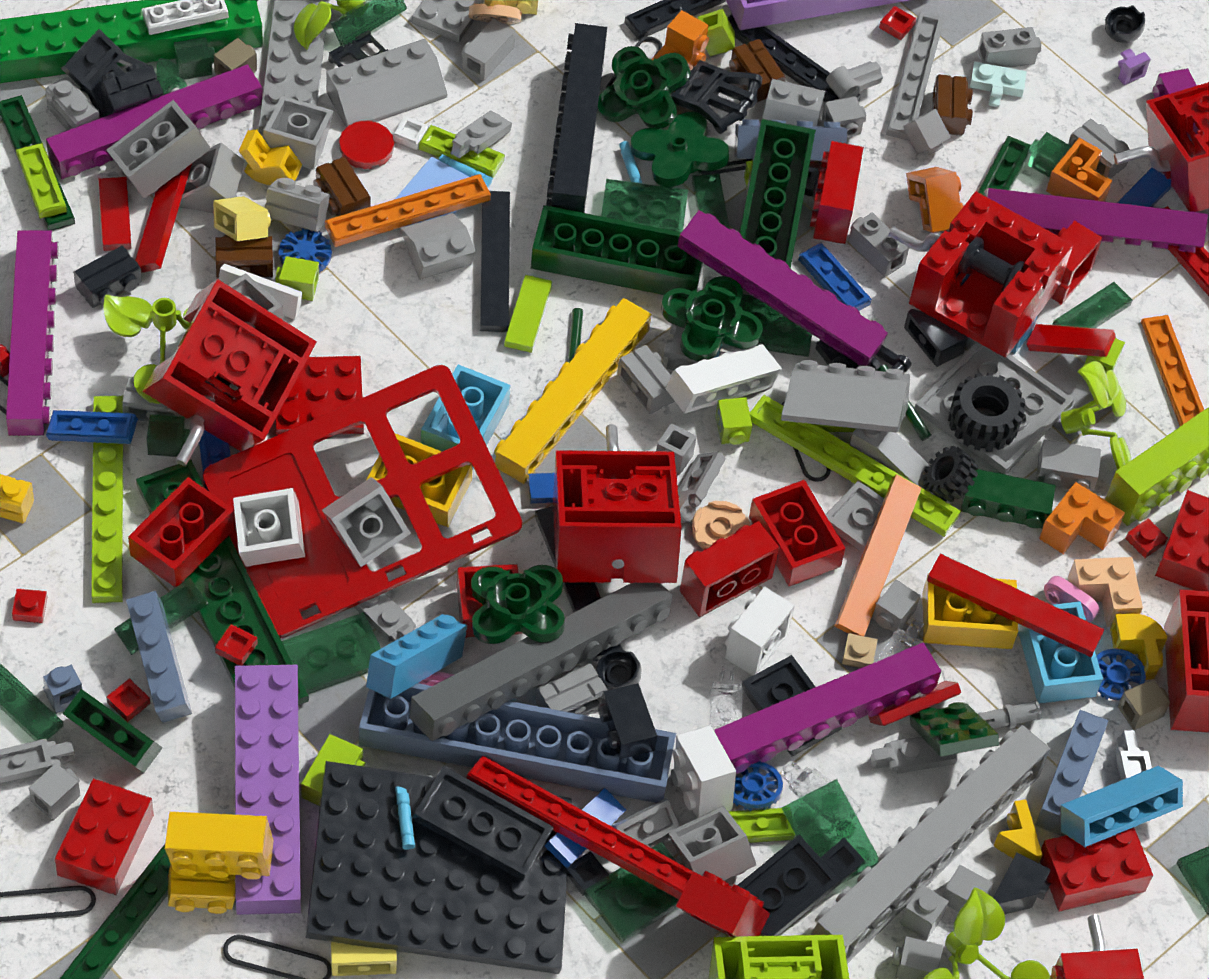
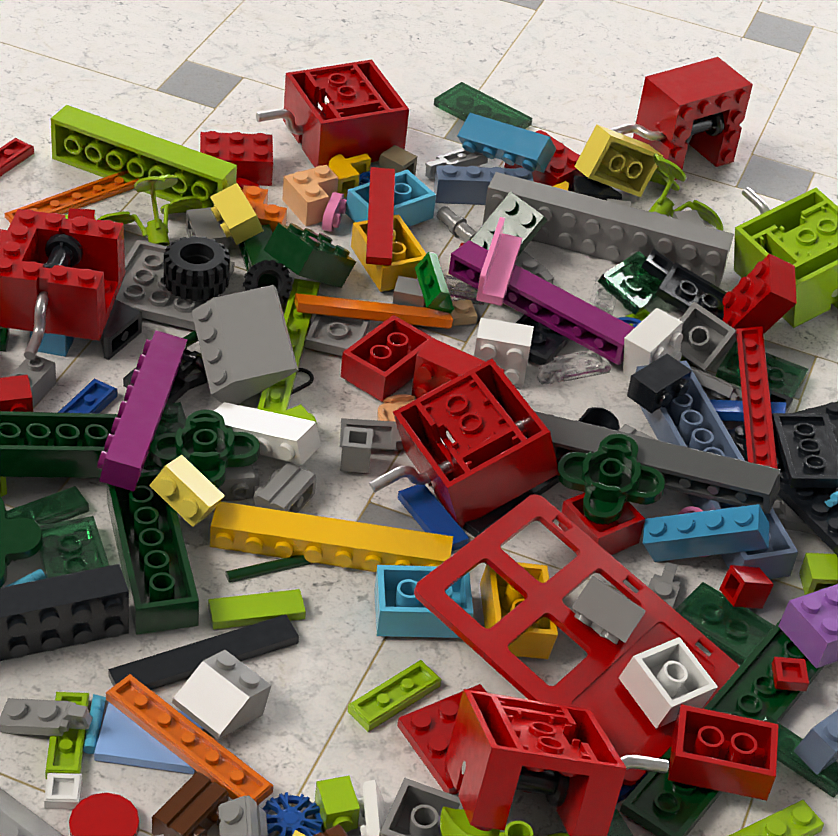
camera: 115 degrees left, 15 degrees down
(352, 681) = (746, 586): none -> red brick
(385, 359) = (394, 695): none -> lime tile
(656, 277) = (187, 490): none -> light yellow brick
(877, 664) = (498, 266): none -> bright pink panel
(886, 618) = (433, 284): none -> green panel
(972, 516) = (310, 254): none -> dark green brick
(1044, 911) = (617, 161): none -> light yellow brick
(1059, 471) = (236, 213): none -> light yellow brick

